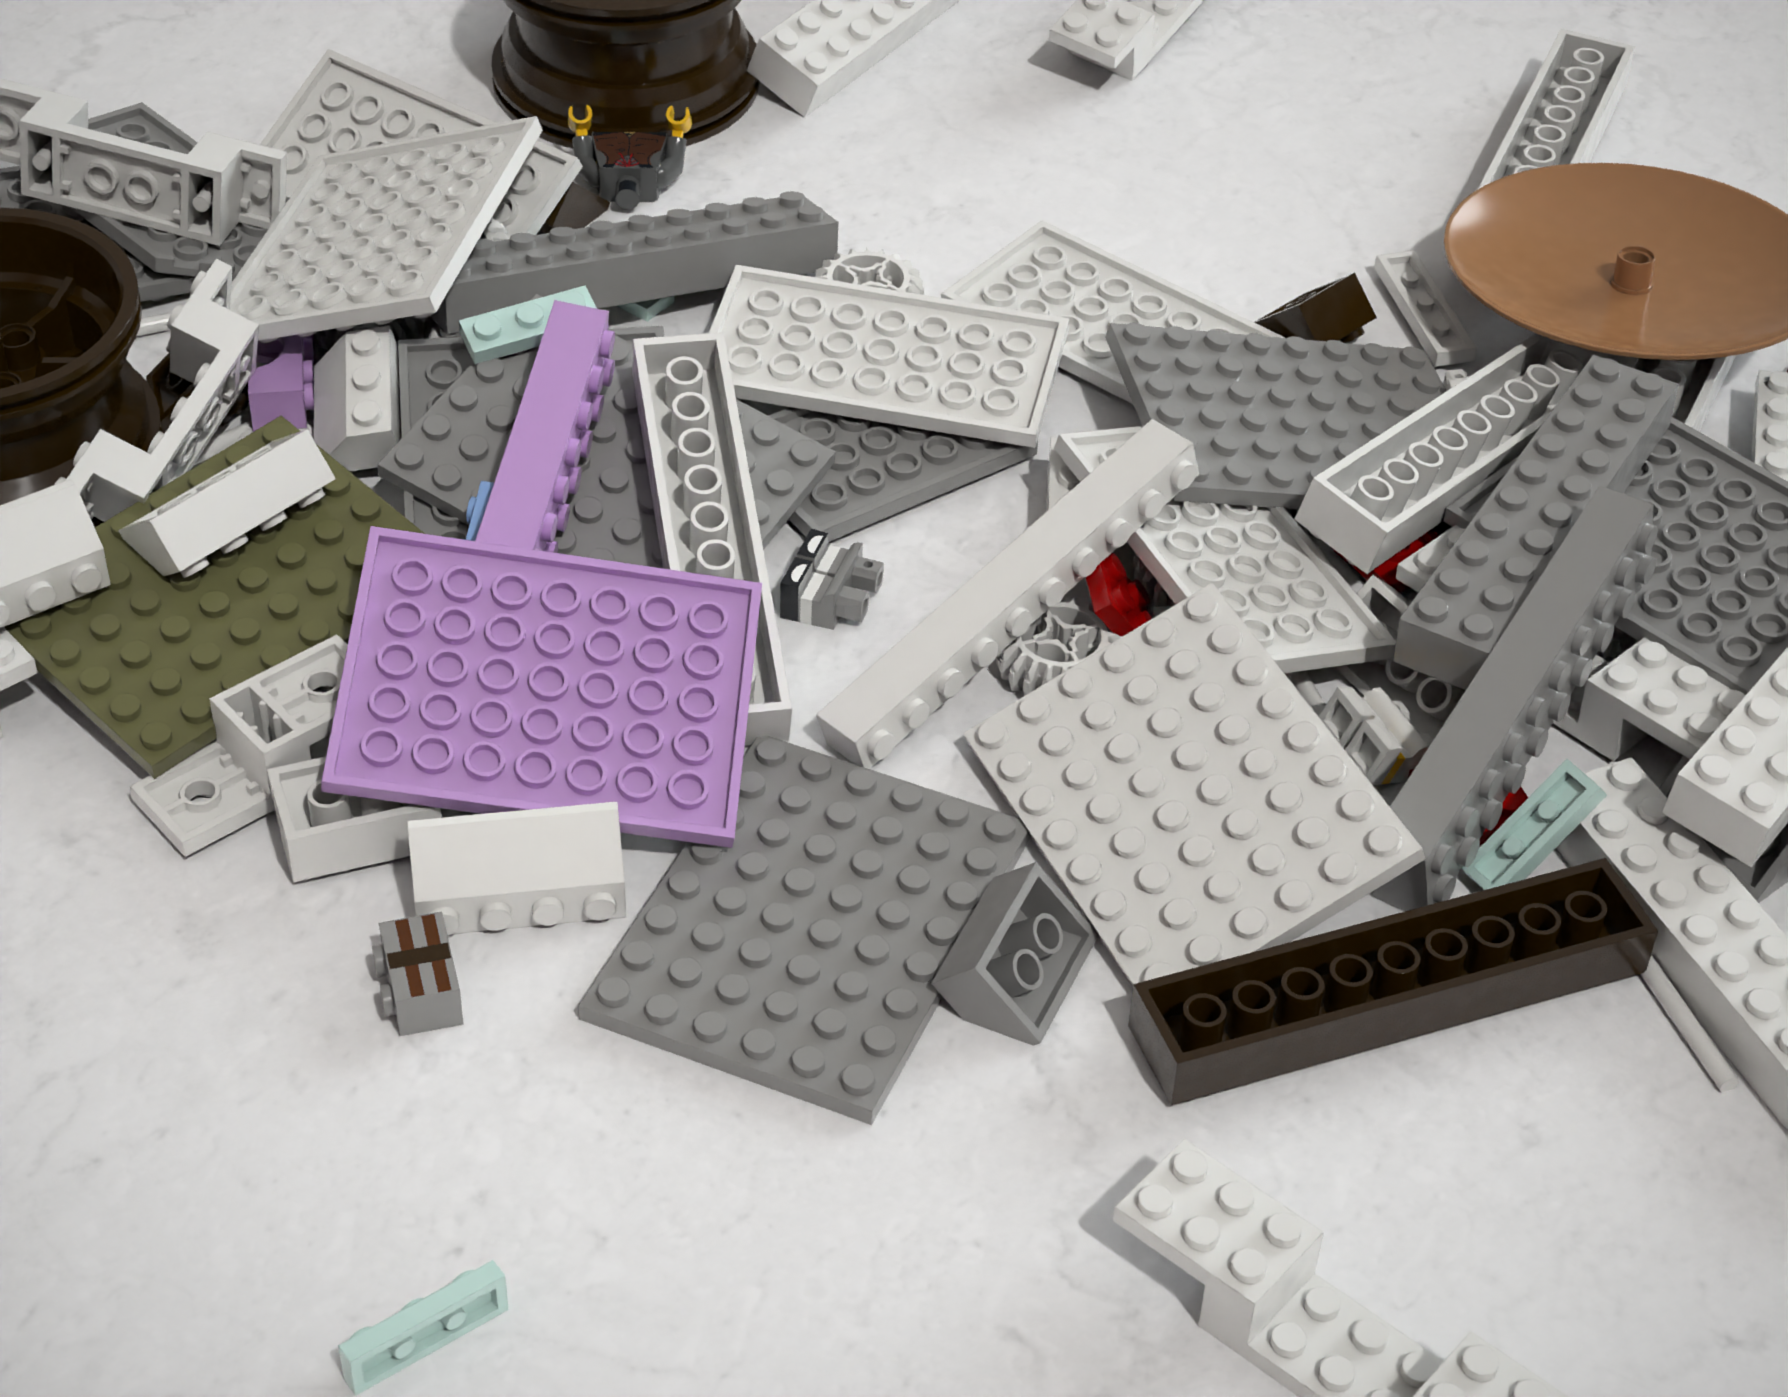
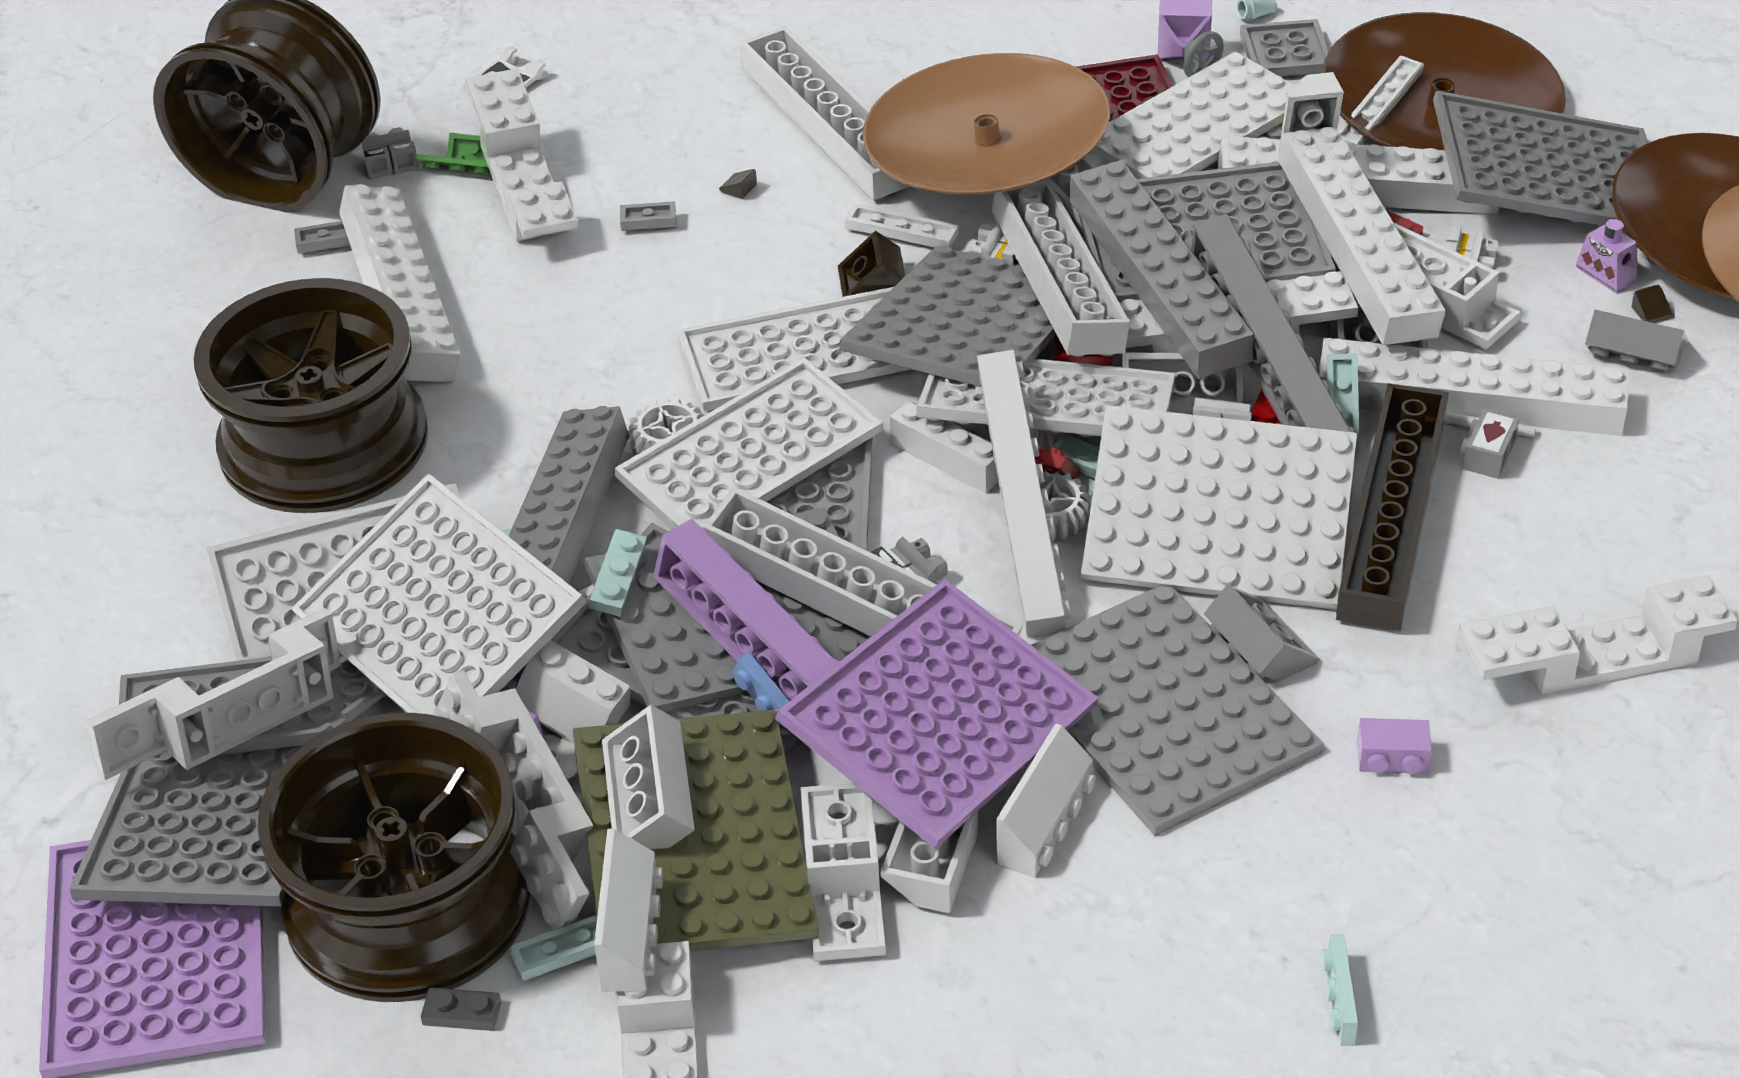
camera: 50 degrees left, 0 degrees up
(420, 974) = (1079, 882): light grey brick -> none
(630, 164) = (439, 460): torso -> none
(926, 1189) = (1394, 745): none -> lavender brick
(1211, 116) = (648, 216): none -> light grey plate
(1351, 158) = (740, 183): none -> dark brown slope
(1638, 1038) = (1489, 443): none -> light grey brick

